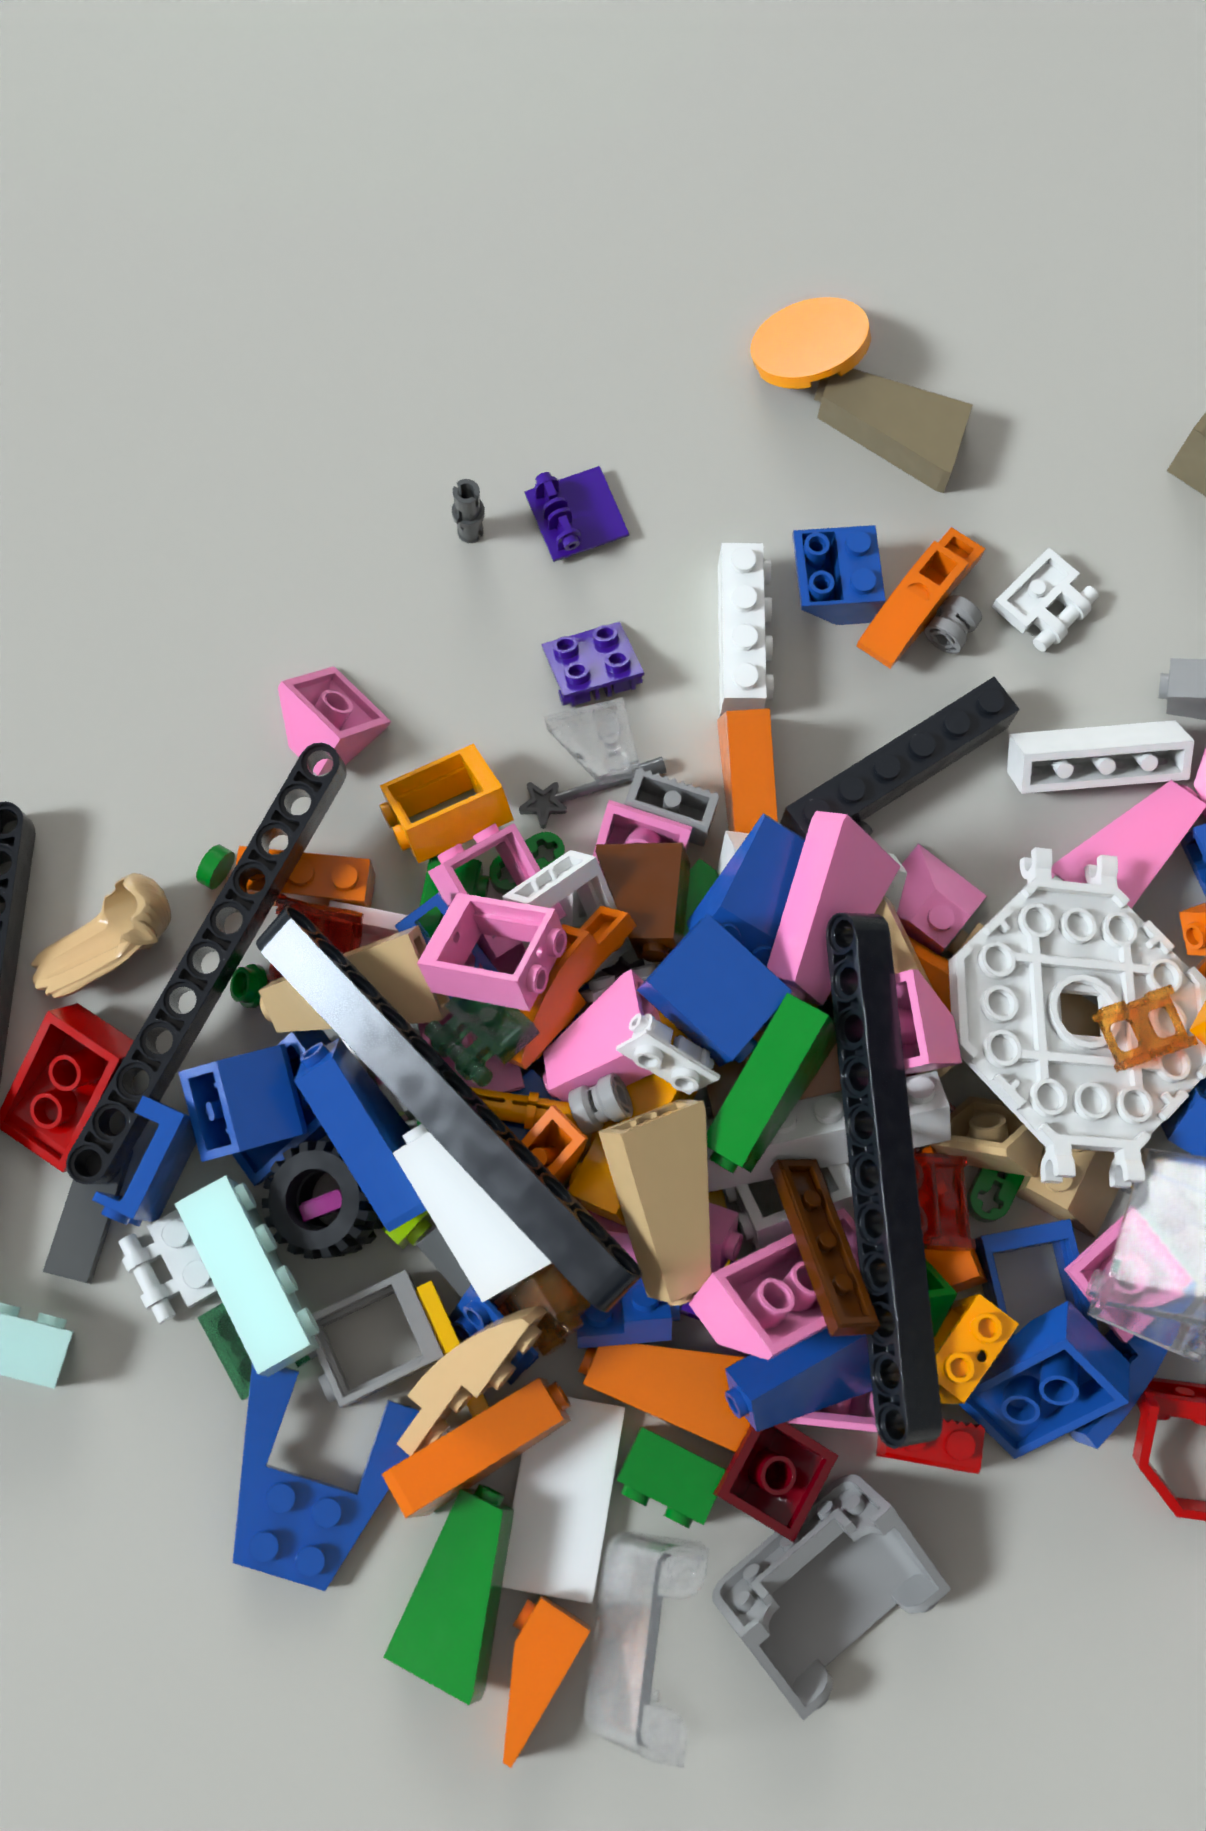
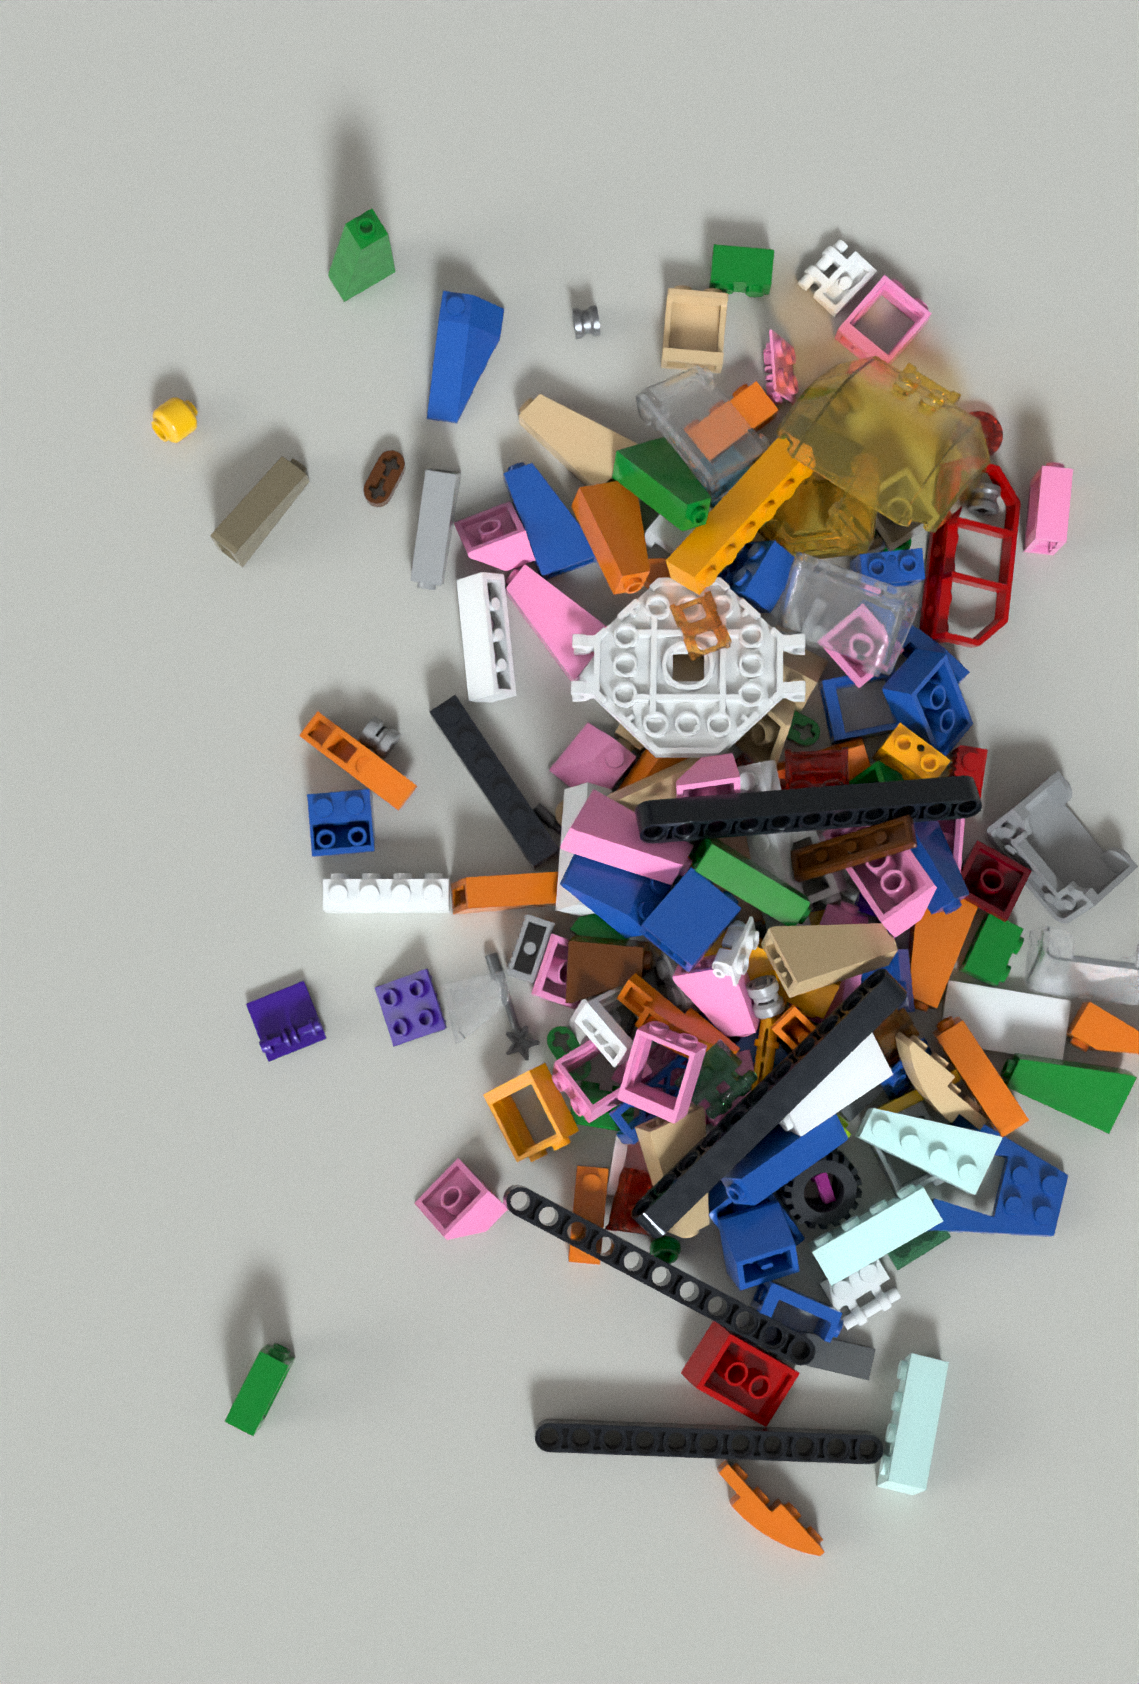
camera: 90 degrees left, 10 degrees up
(102, 467) = (260, 1388): none -> green window
(128, 921) = (635, 1357): tan hair -> none
(215, 866) = (577, 1281): green tile -> none
(368, 1376) = (937, 1148): none -> light aqua wedge
(468, 510) = (287, 1103): dark grey pin -> none
(810, 342) = (143, 839): light orange tile -> none
(897, 422) = (209, 772): dark tan slope -> none
(1036, 591) = (350, 673): white plate -> none

